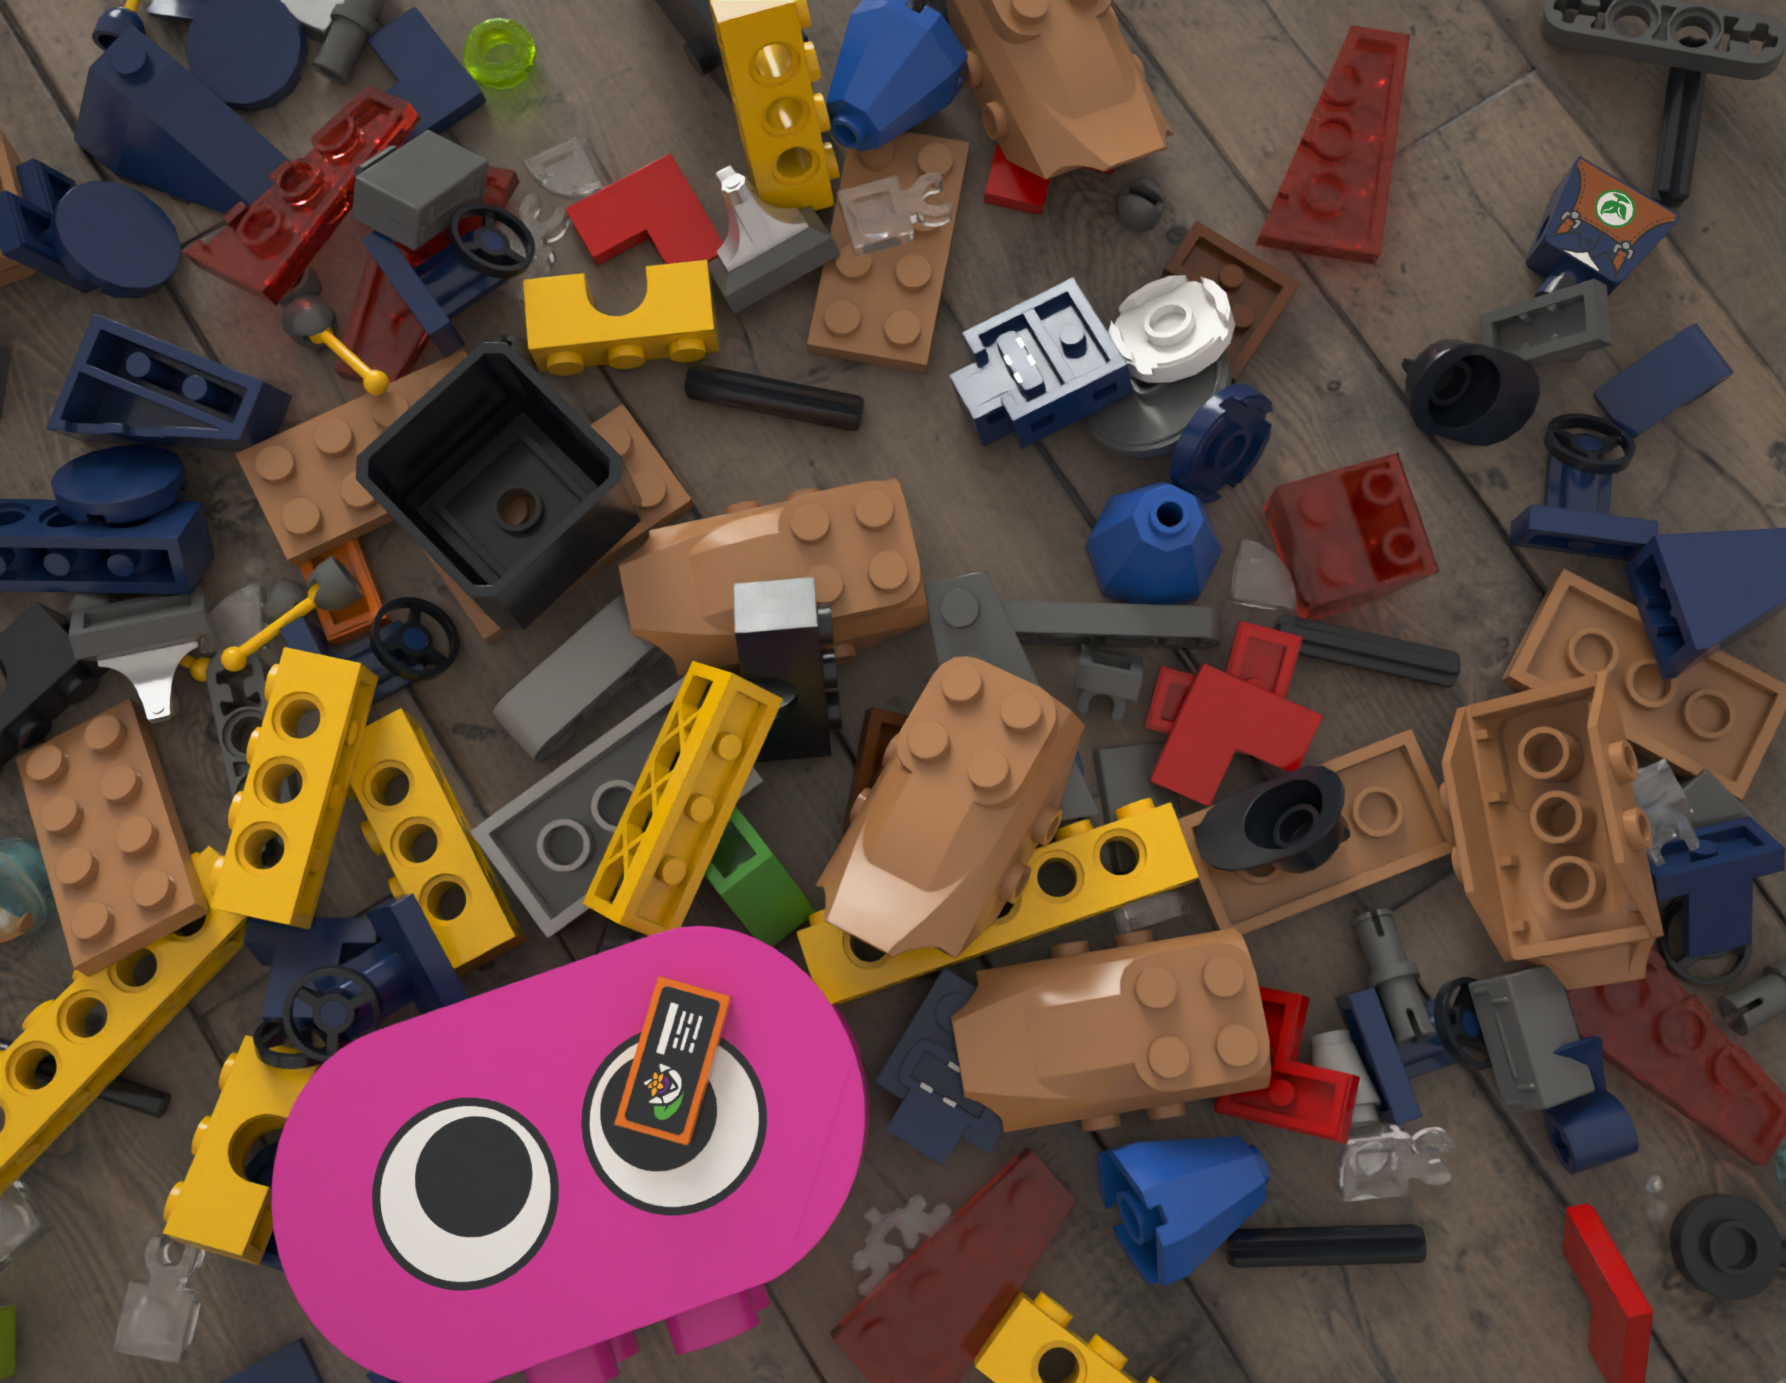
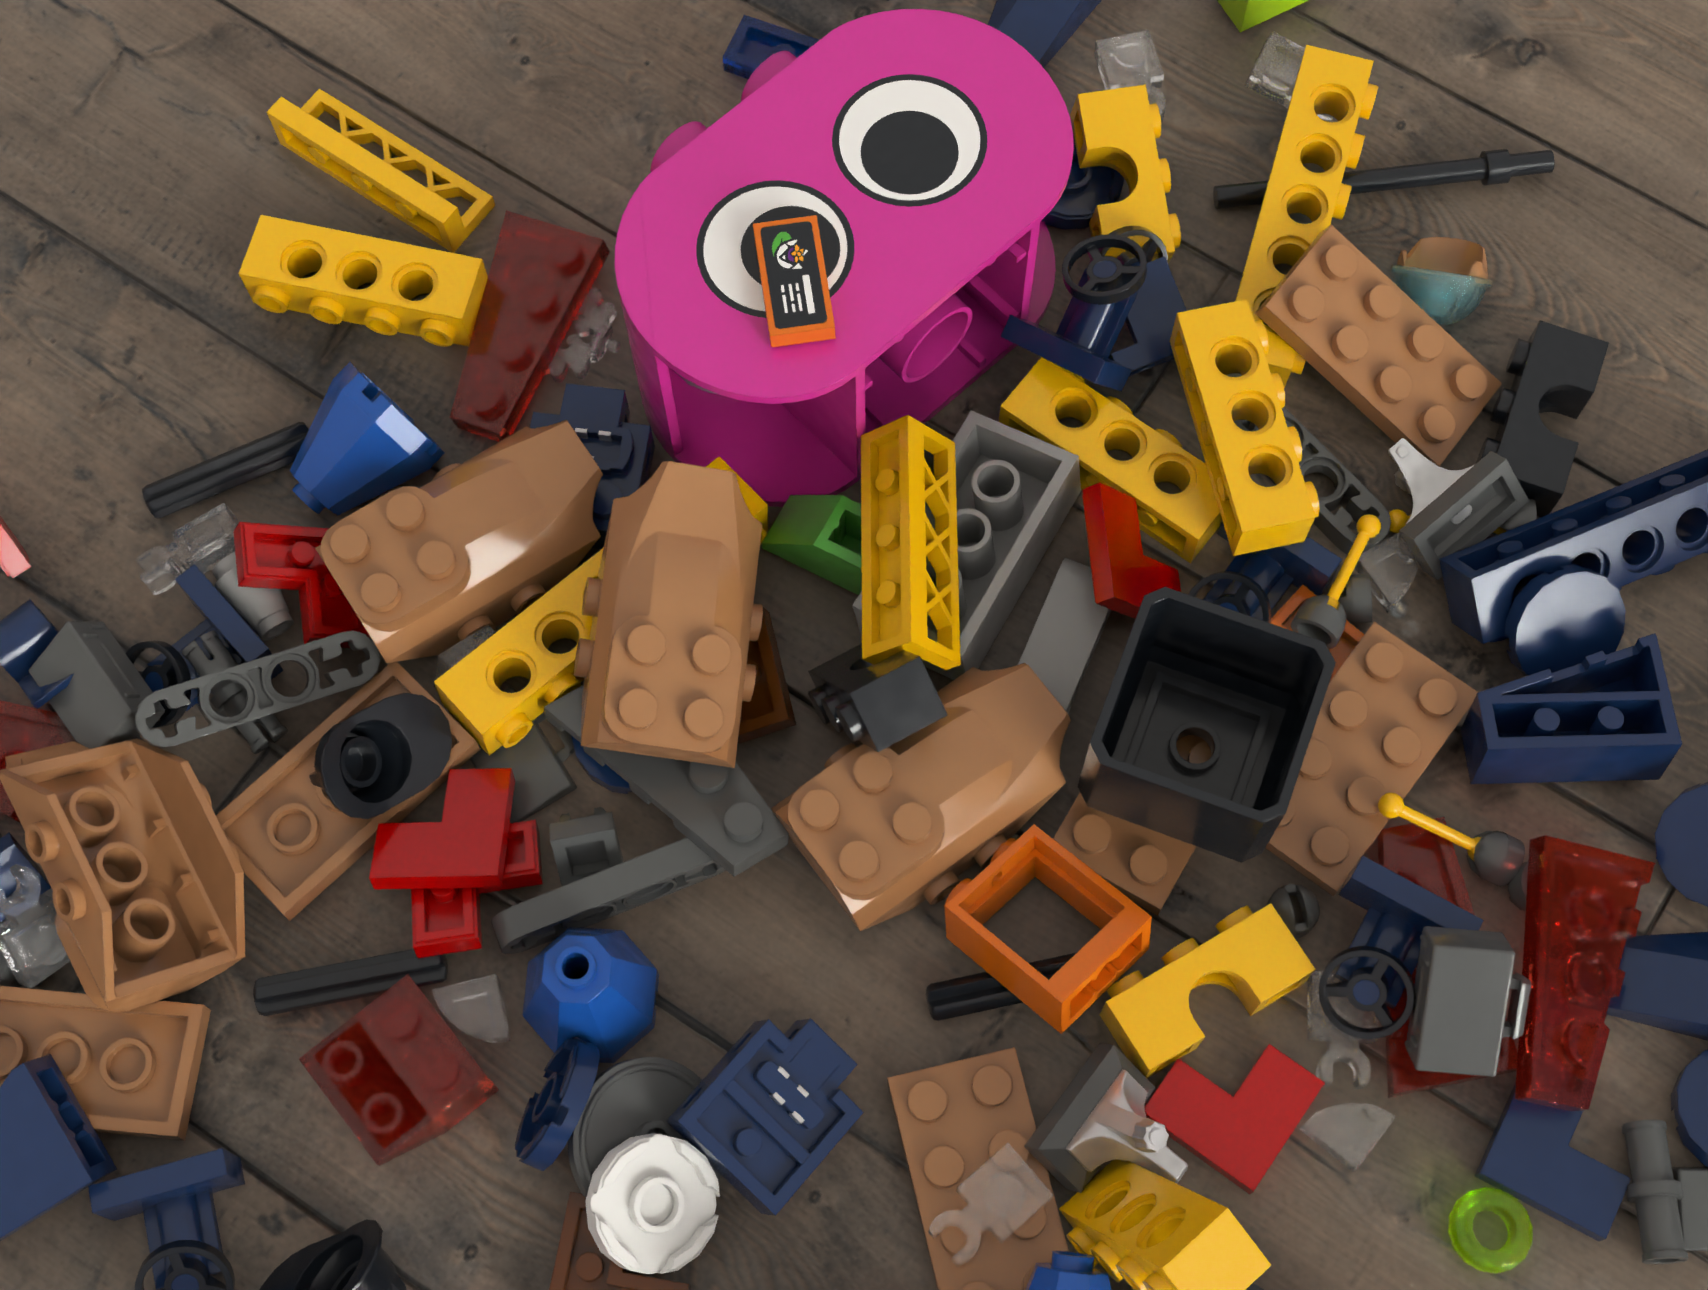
camera: 155 degrees right, 10 degrees down
(486, 701) = (1116, 554): none -> red tile
(705, 356) = (1091, 970): none -> orange window
(1372, 965) = (258, 688): none -> dark grey beam

